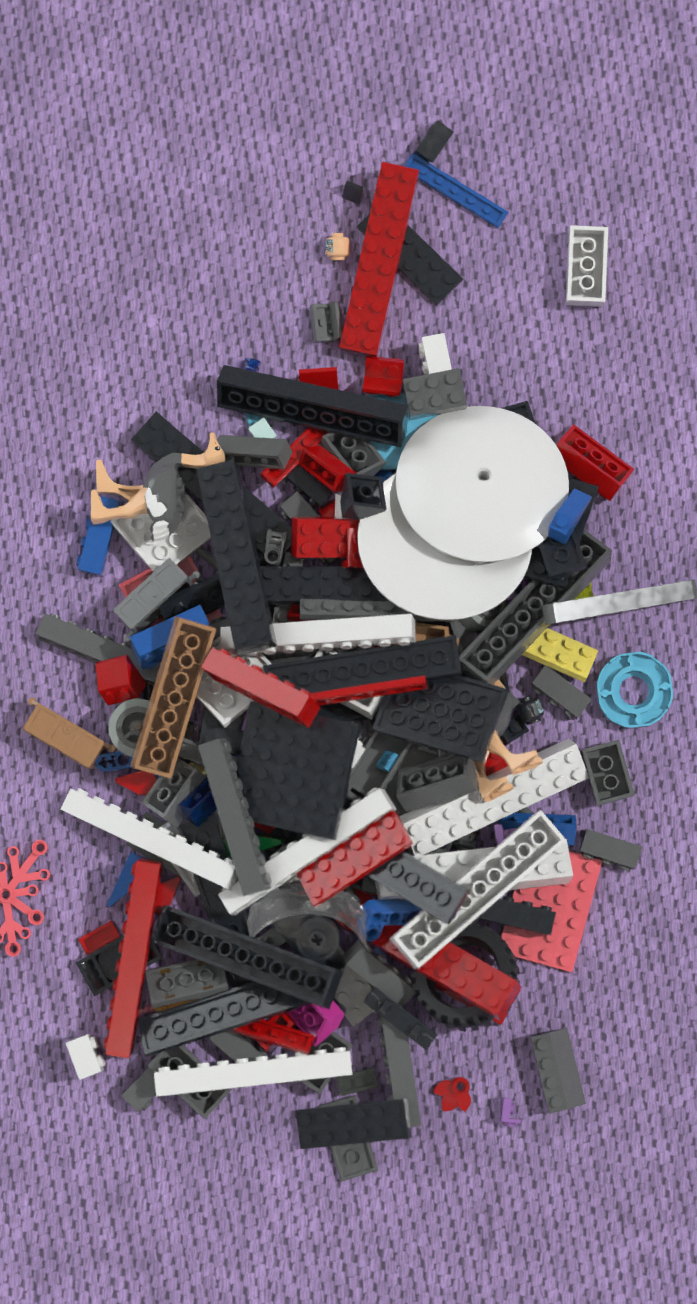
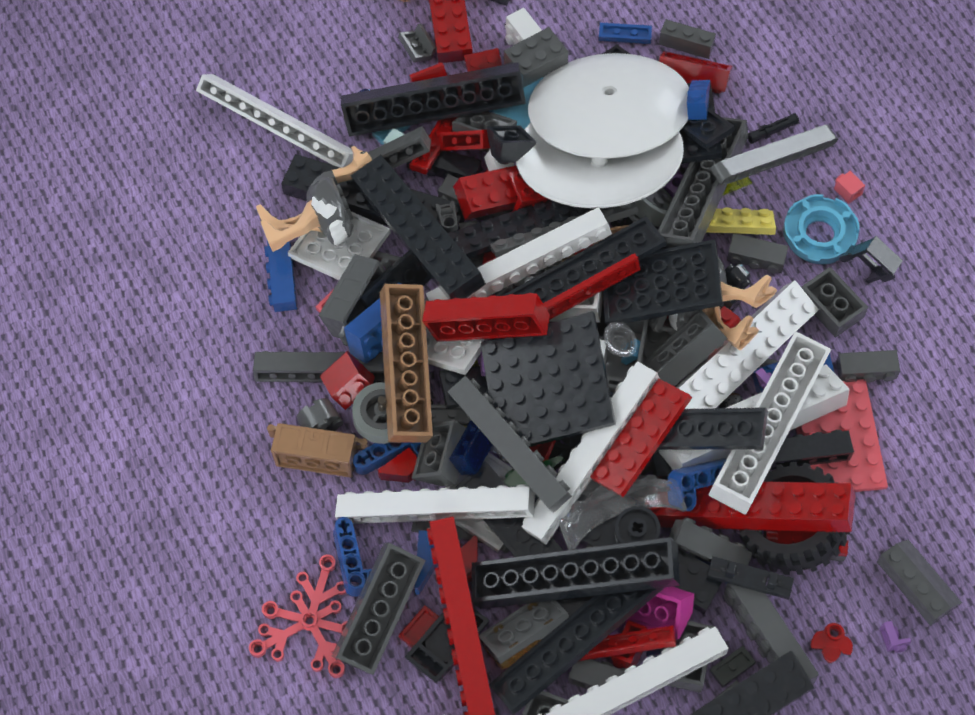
camera: 20 degrees left, 20 degrees down
(63, 851) = (349, 556): none -> blue beam
(67, 914) = (378, 608): none -> dark grey brick
(80, 708) = (320, 416): none -> dark grey brick
(151, 362) = (275, 120): none -> white brick
(379, 751) = (620, 340): none -> clear hat
(542, 390) = (625, 33): none -> blue plate
(600, 423) = (687, 39): none -> dark grey brick
(640, 559) = (766, 131): none -> black pin
(667, 754) = (881, 253): none -> black piece
(683, 654) = (849, 186): none -> coral brick

